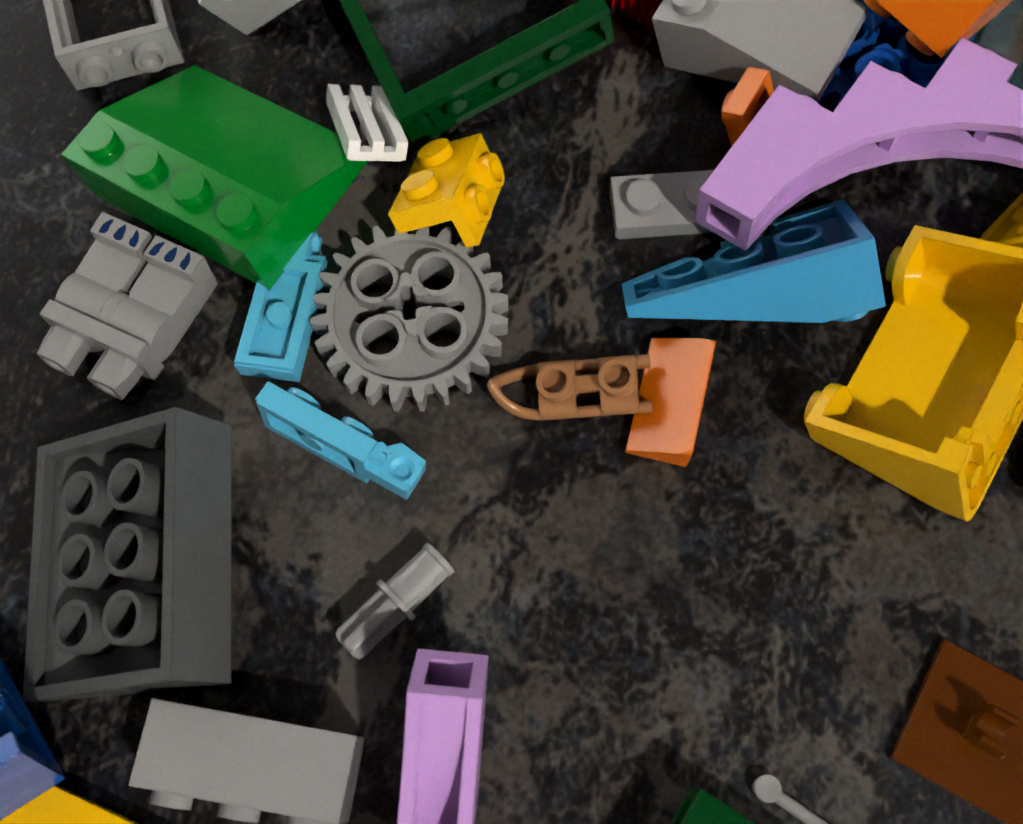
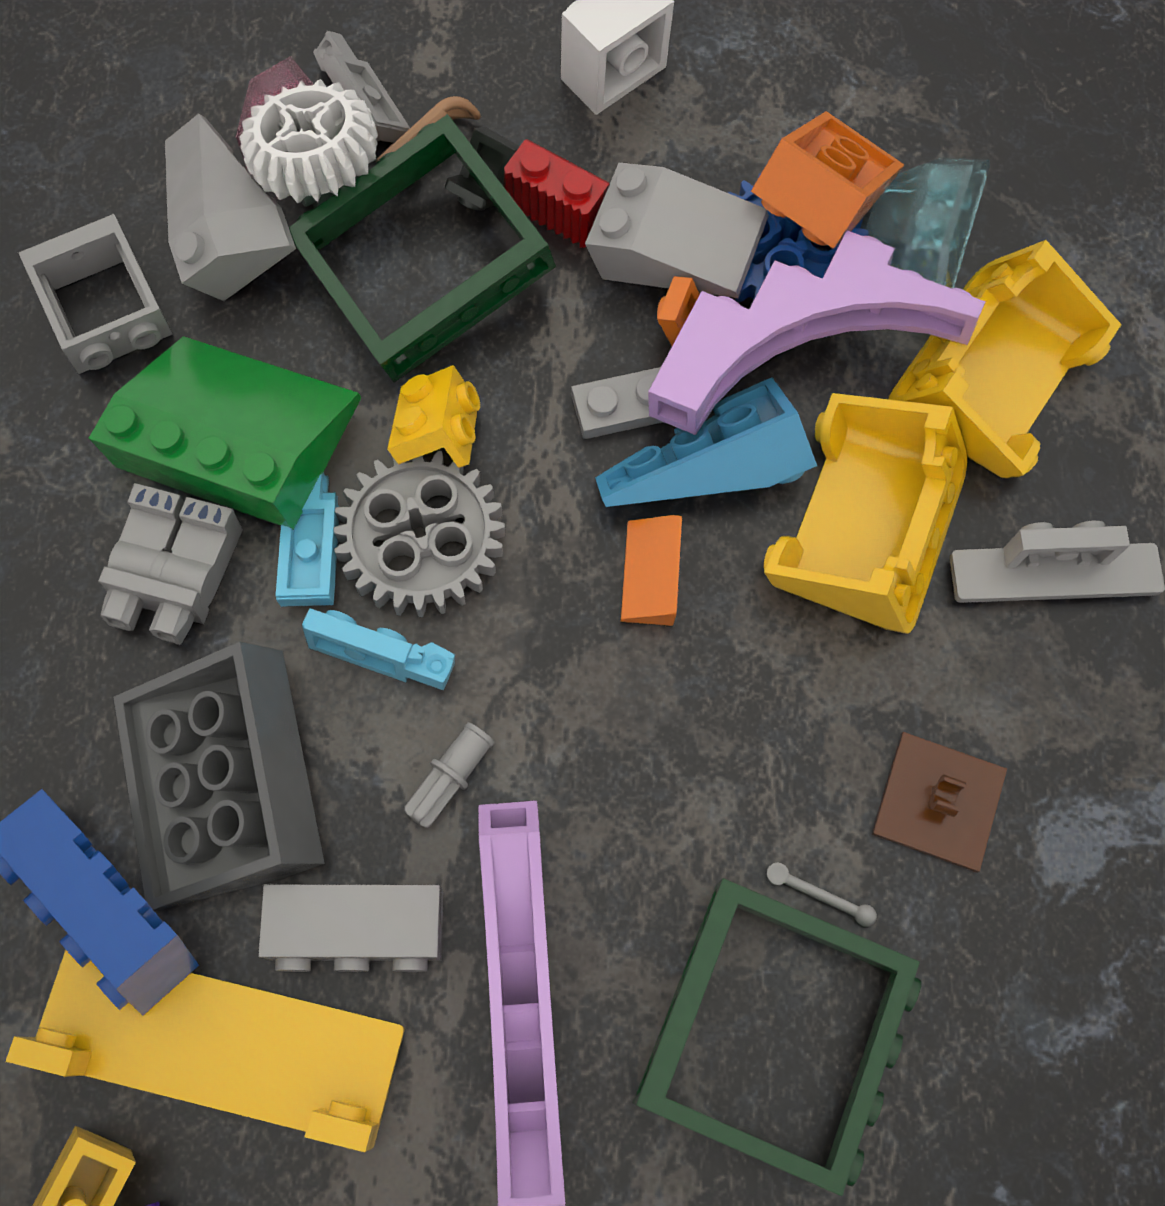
camera: 15 degrees left, 0 degrees up
(376, 120) = (359, 367): white tile -> none
(559, 387) = (557, 573): medium nougat piece -> none

